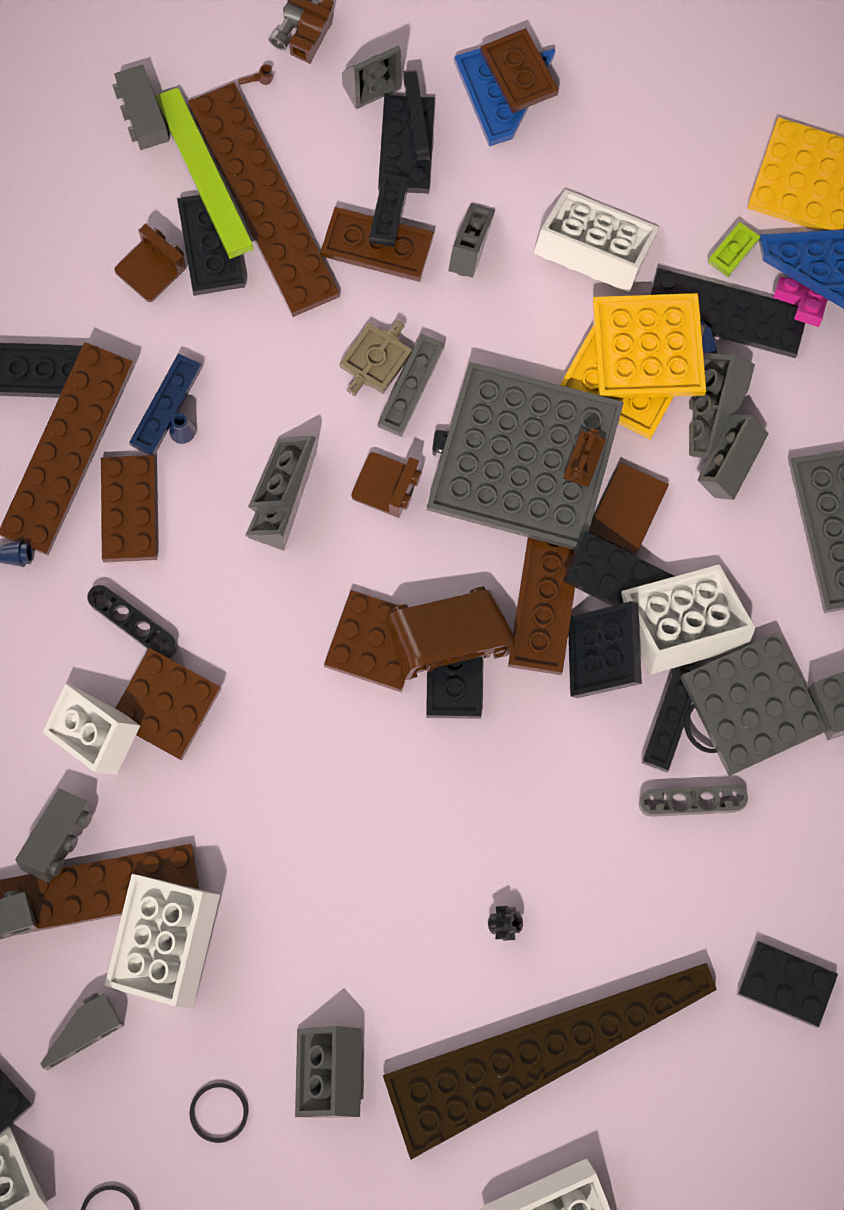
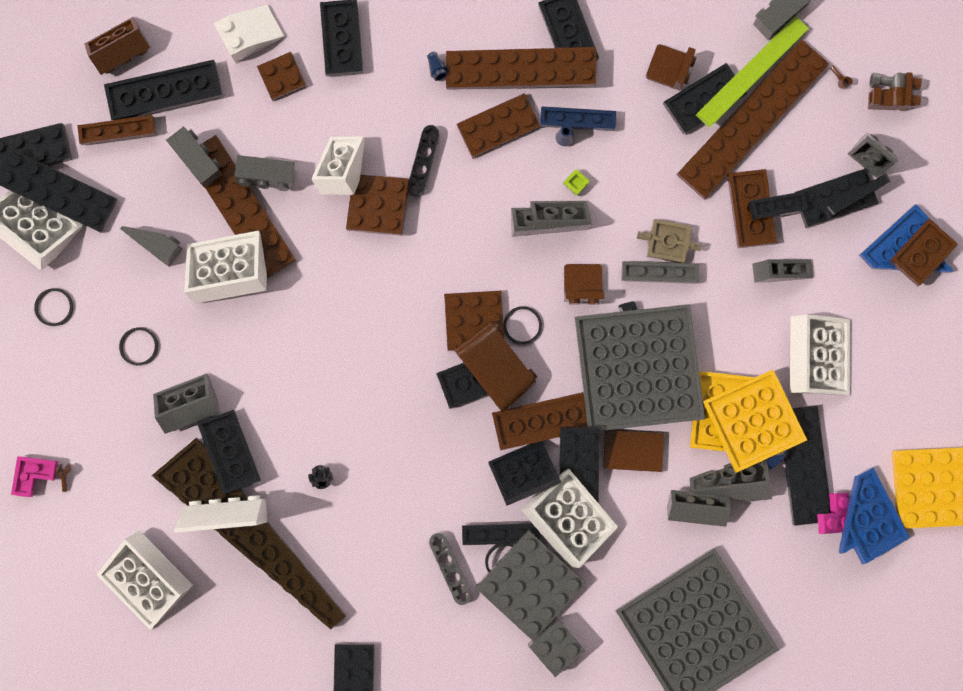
camera: 70 degrees right, 10 degrees up
(249, 440) = (576, 182): none -> lime plate
(402, 559) = (526, 308): none -> black piece
(421, 1035) = (228, 452): none -> black plate
(507, 1070) = (222, 515): none -> white slope
(585, 457) = (652, 408): reddish brown hinge -> none
(733, 249) = (854, 453): lime plate -> none

